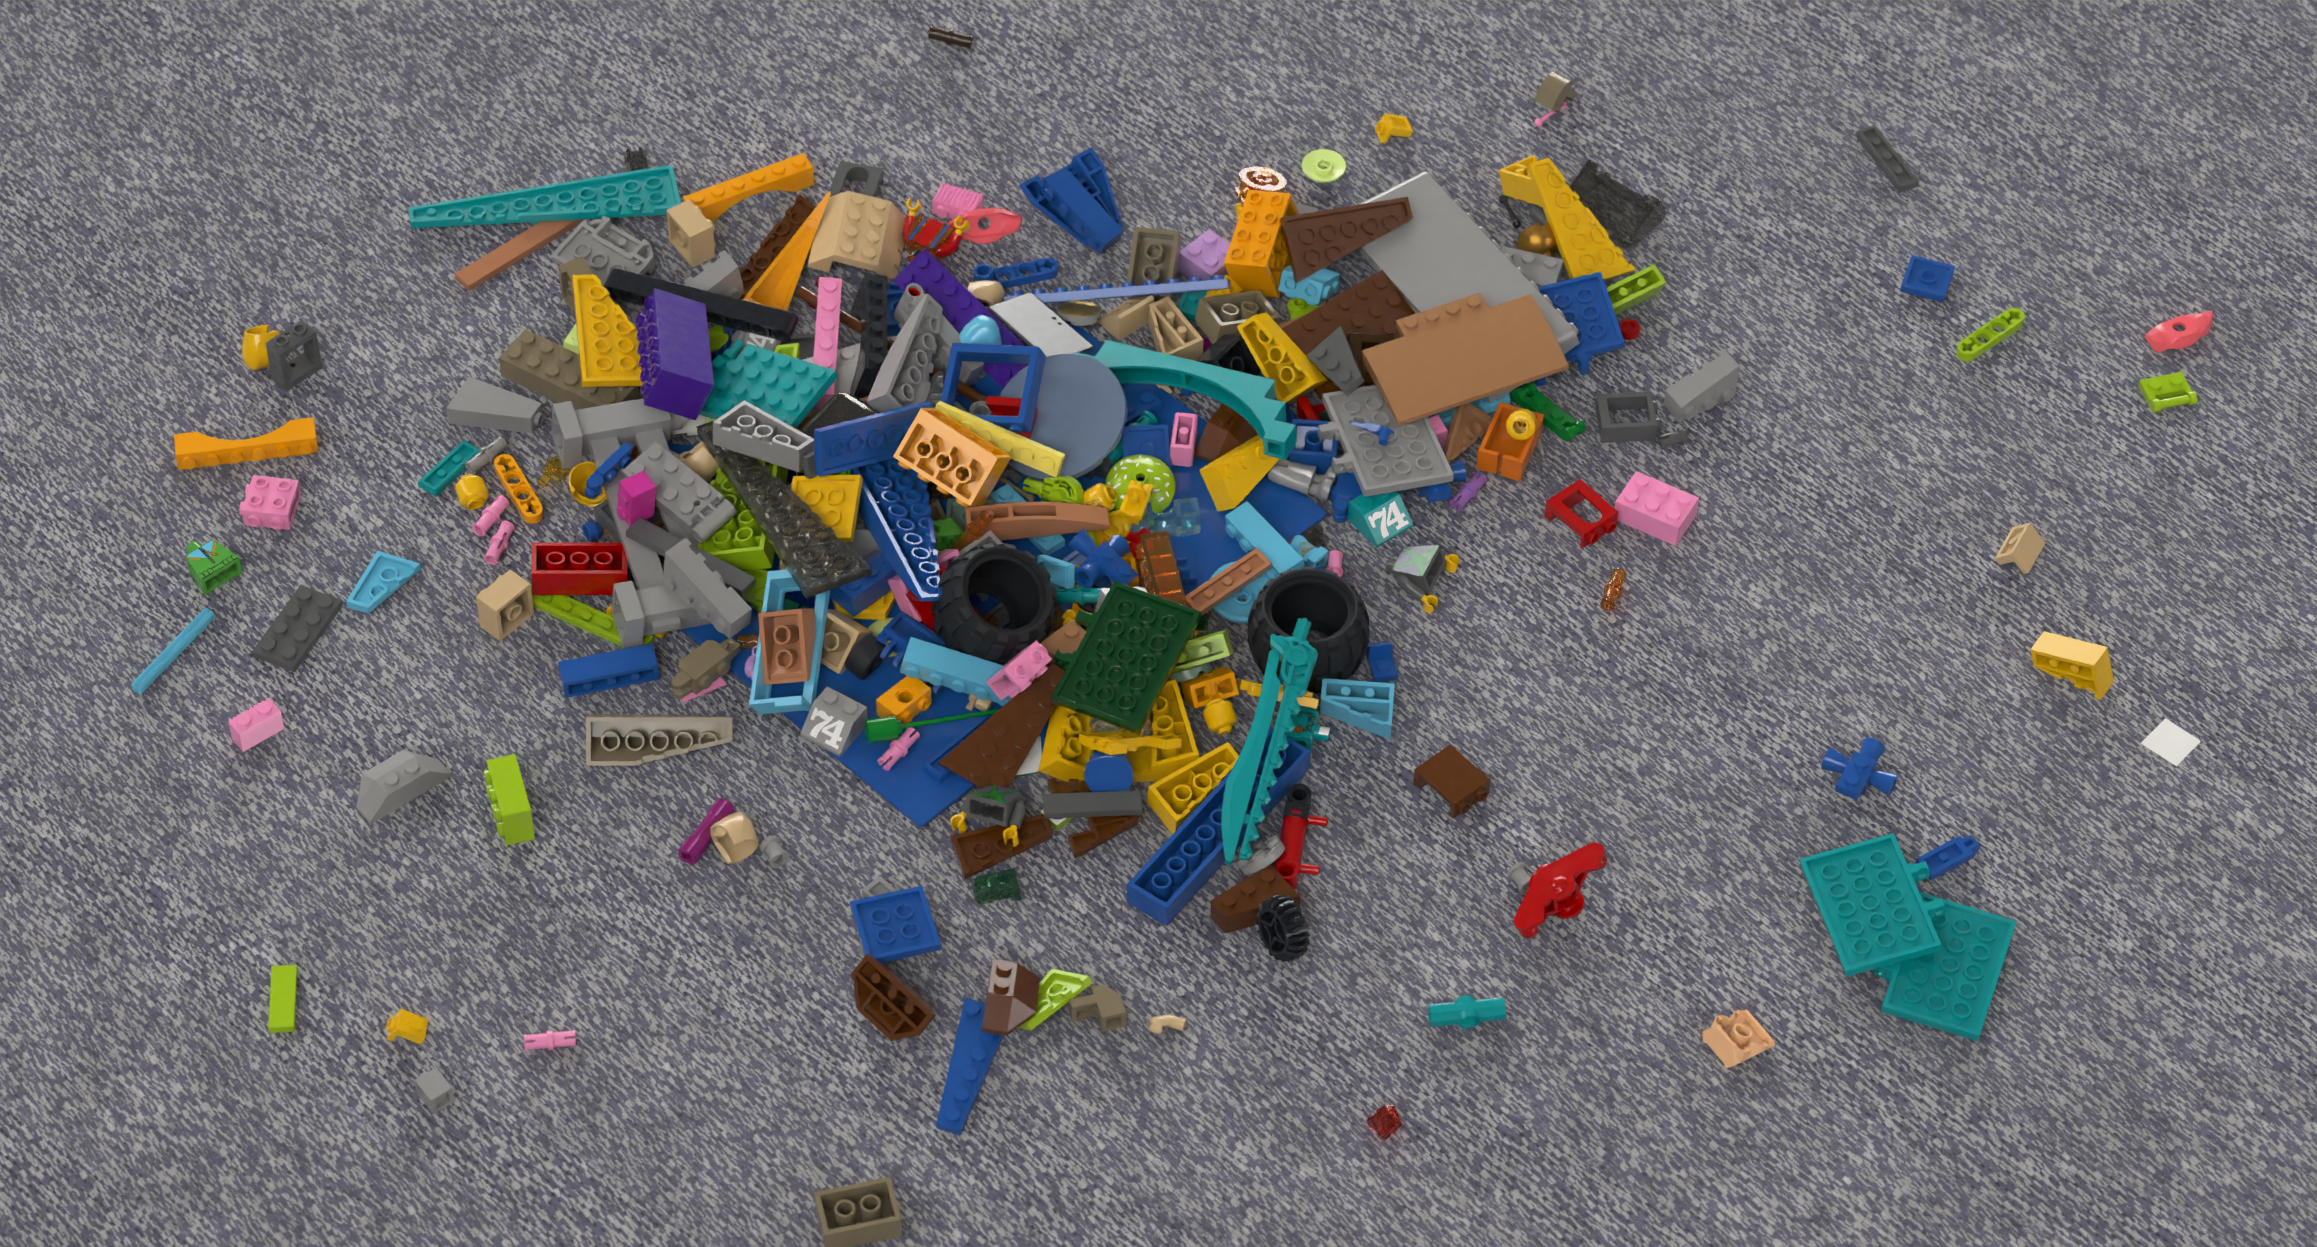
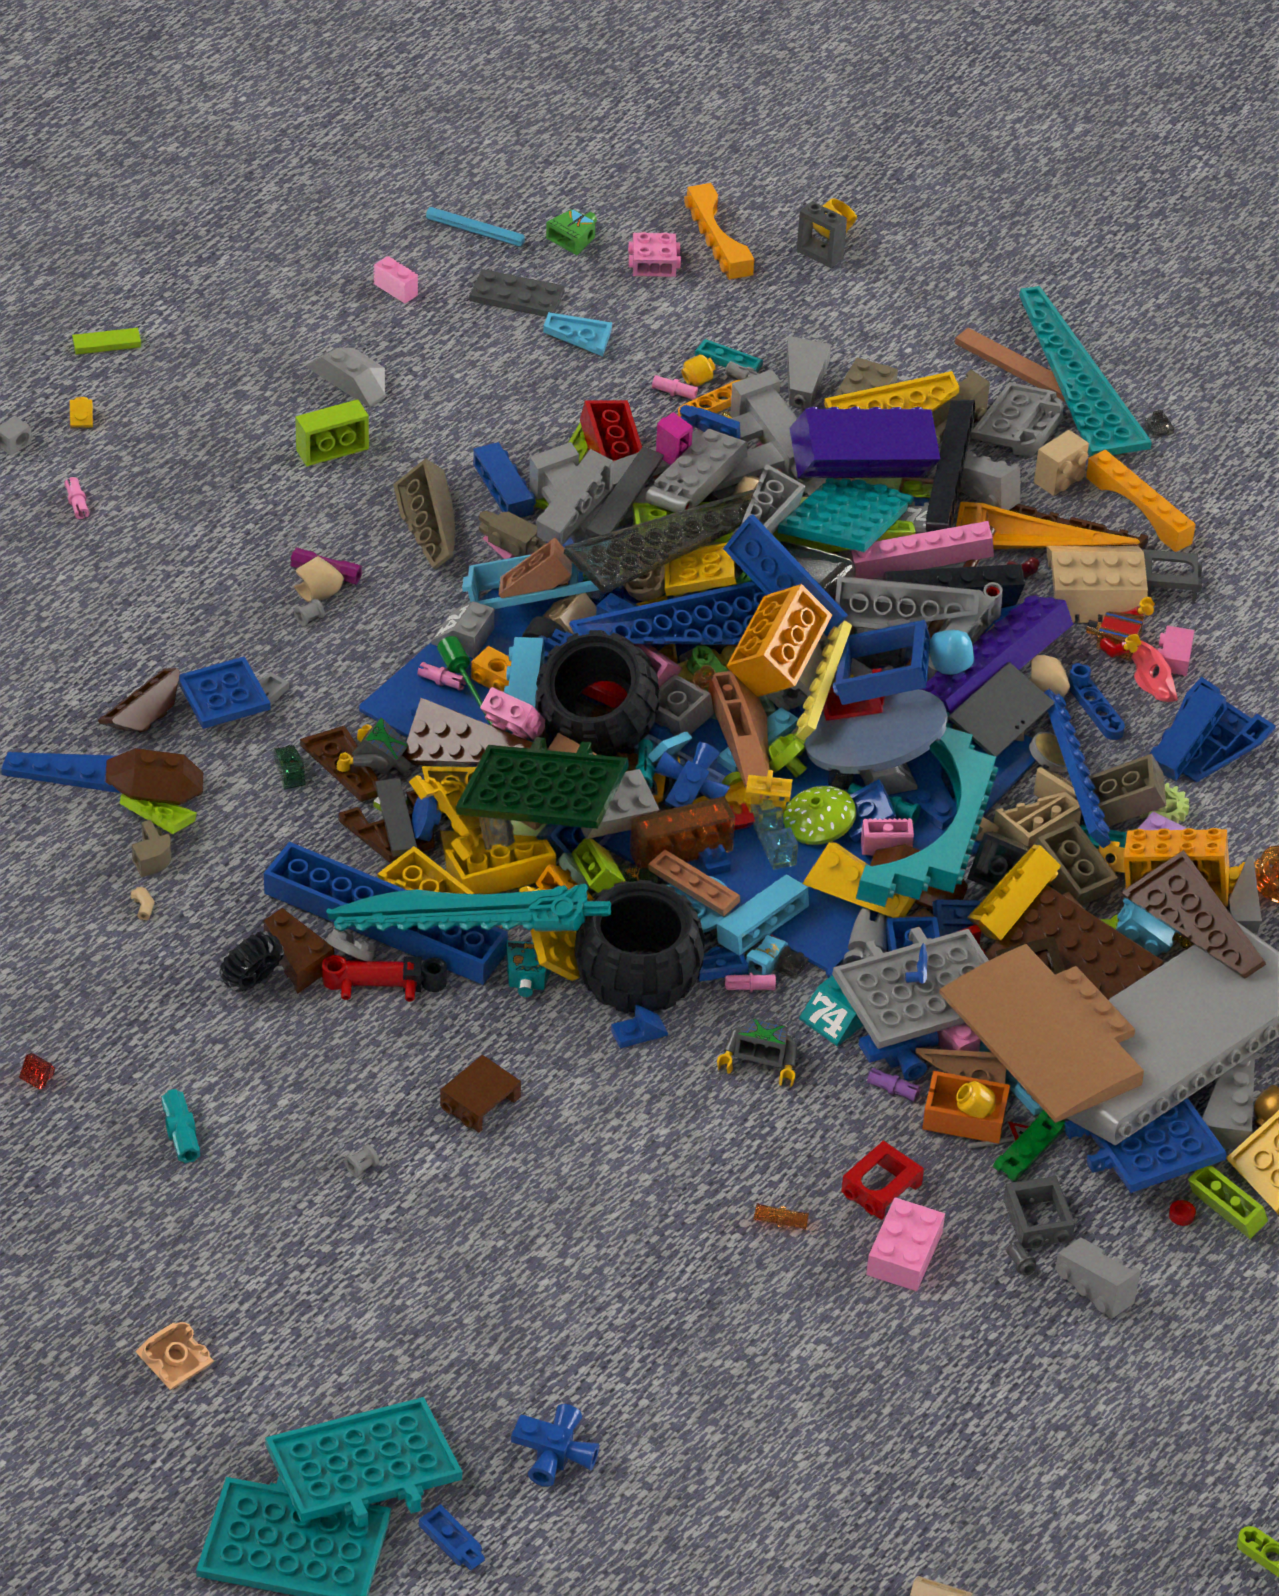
camera: 80 degrees right, 5 degrees down
(499, 542) = (644, 397): bright pink pin -> none
(504, 605) = (558, 401): tan brick -> none
(1100, 496) = (798, 779): yellow head -> none
(1337, 362) = (1005, 933): dark grey wing -> none
(1359, 704) = (564, 1011): medium azure wedge -> none
(1557, 888) = (337, 1179): red piece -> none

